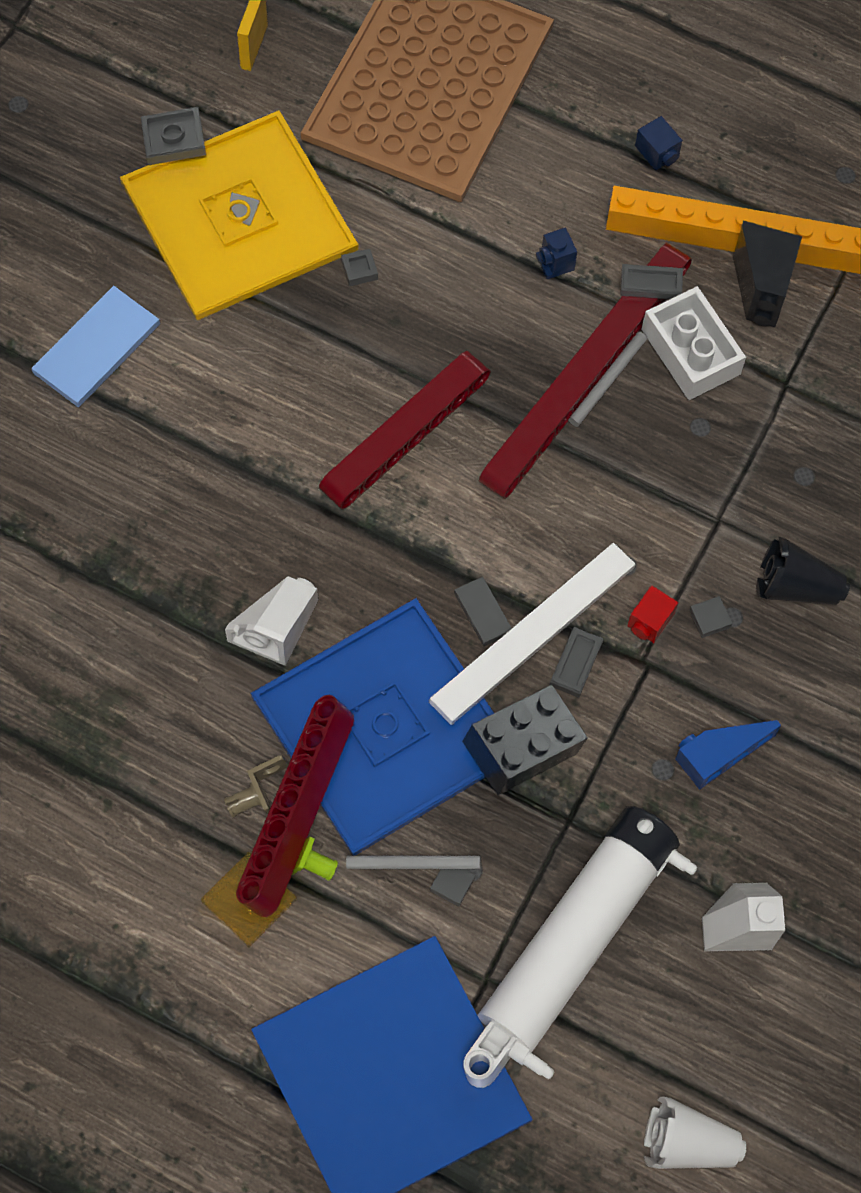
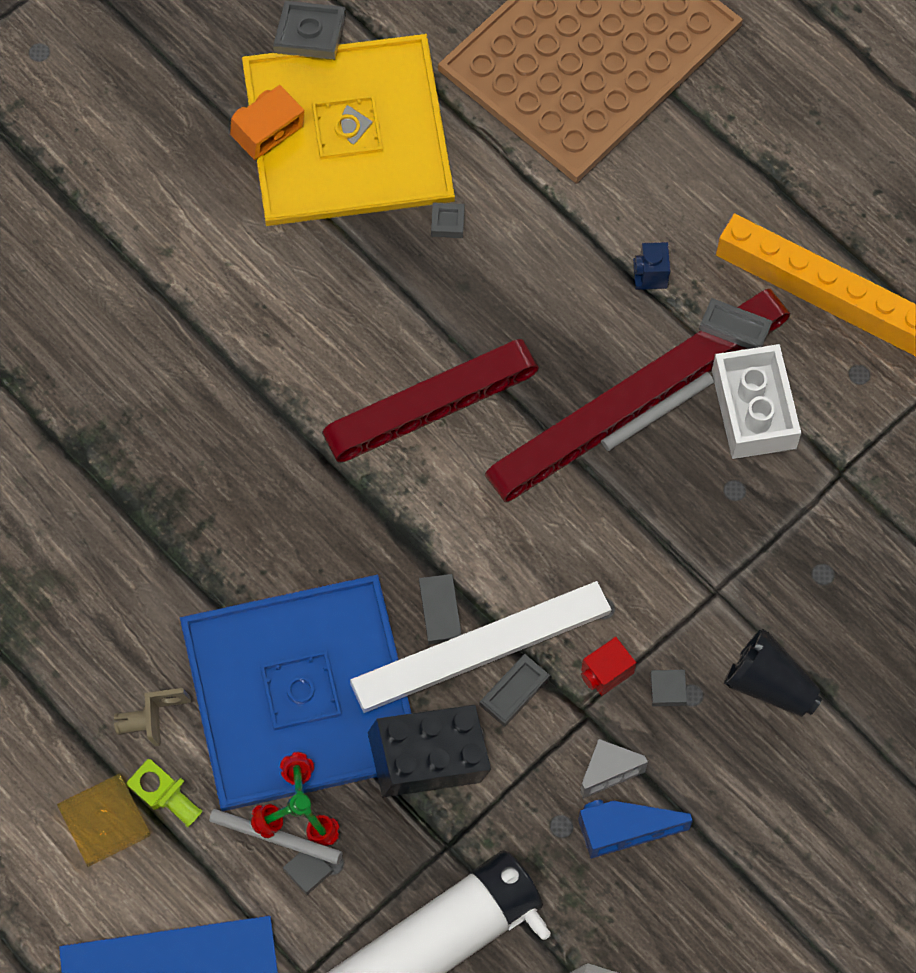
camera: 20 degrees right, 0 degrees up
(95, 346) = (156, 222): light blue tile -> none
(166, 226) = (266, 121): none -> orange brick
(275, 620) = (230, 553): white slope -> none
(295, 806) = (178, 743): dark red beam -> none
(403, 848) = (269, 819): none -> red plant
(658, 143) = (802, 182): dark blue brick -> none
(687, 701) = (610, 767): none -> light grey slope
(764, 270) = (861, 349): black slope -> none

